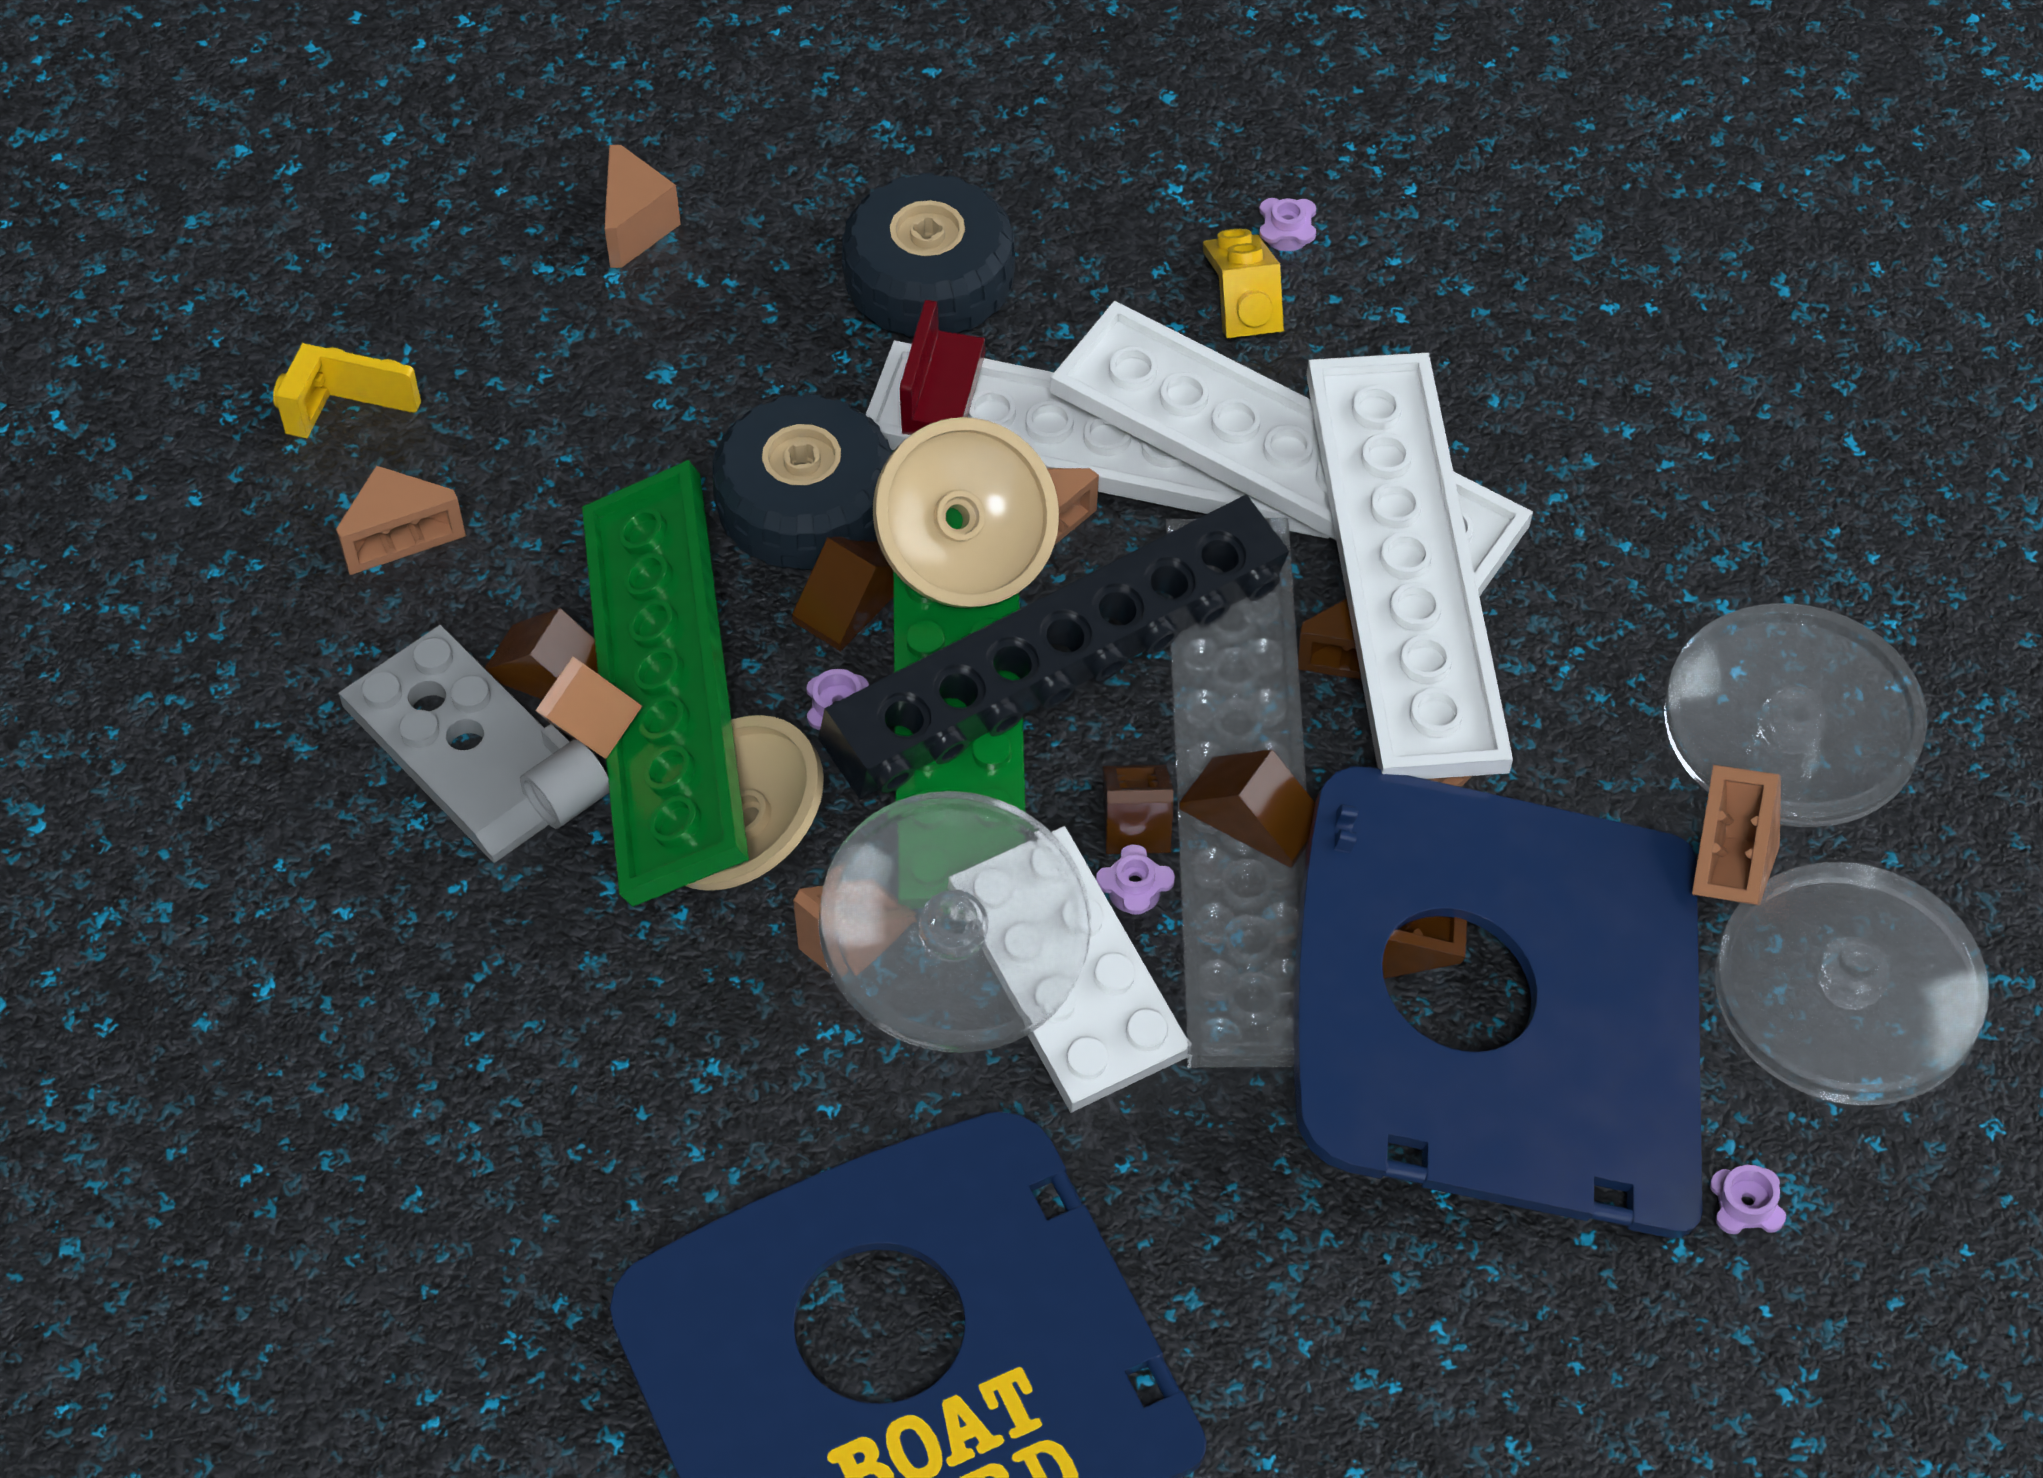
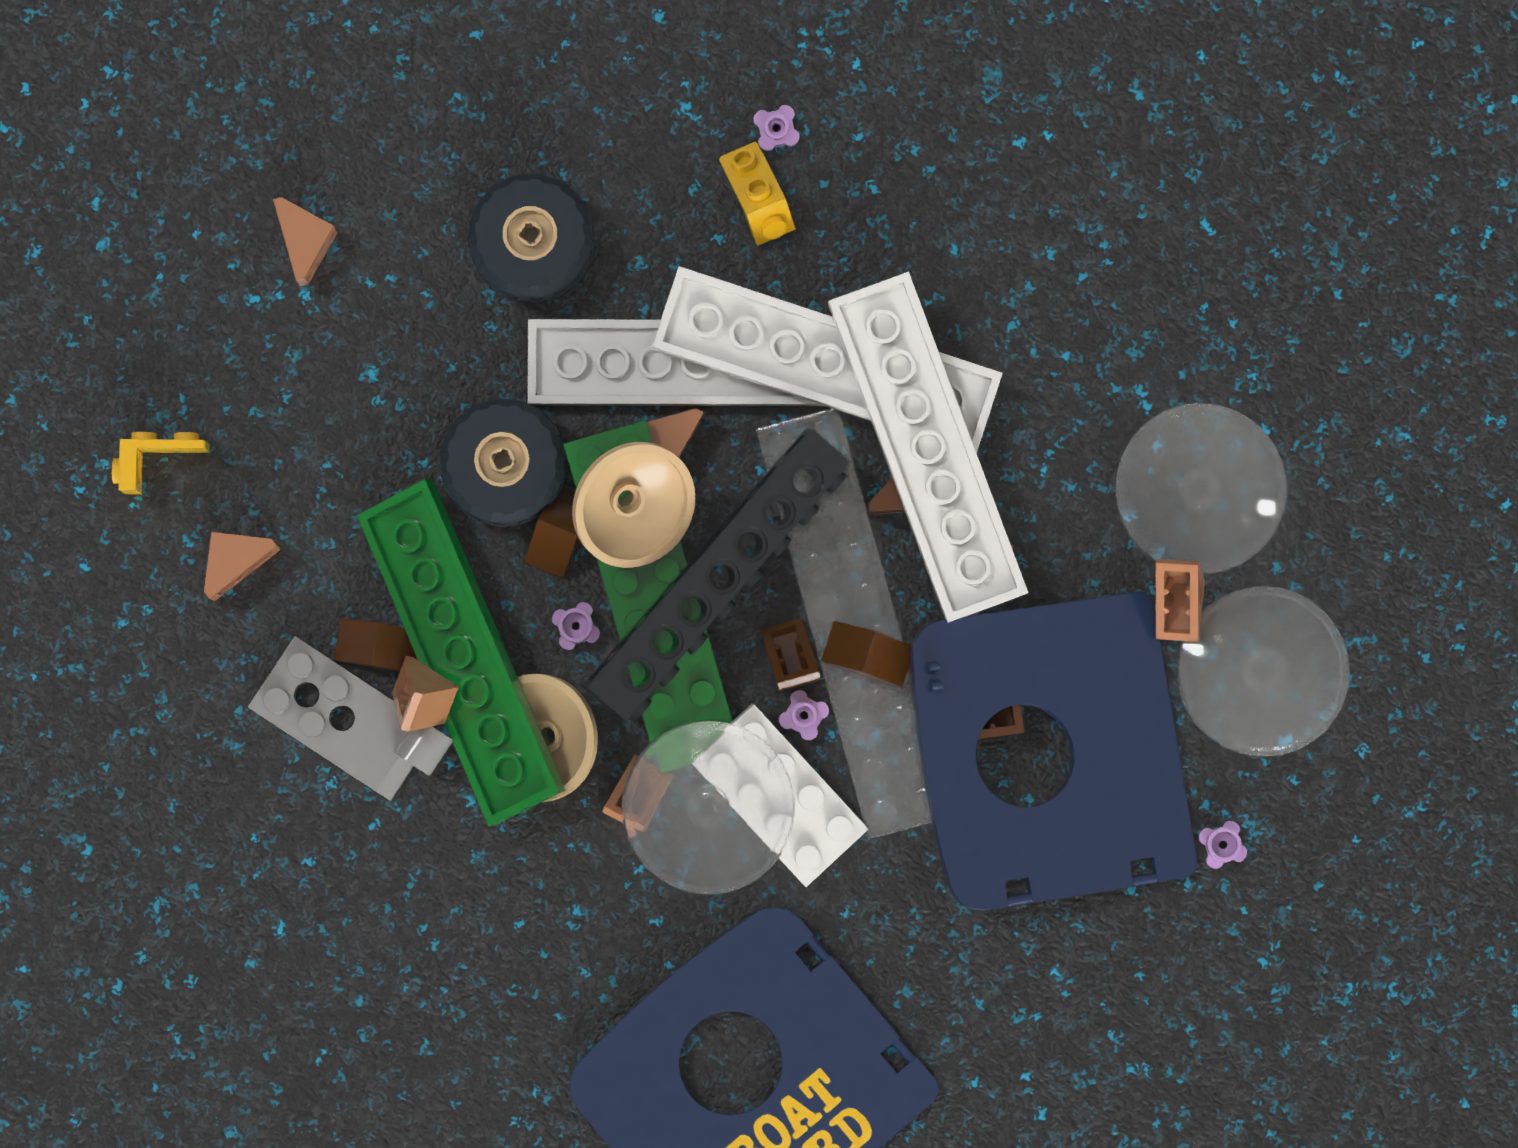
camera: 15 degrees left, 30 degrees up
(938, 373) = (575, 356): dark red panel -> none

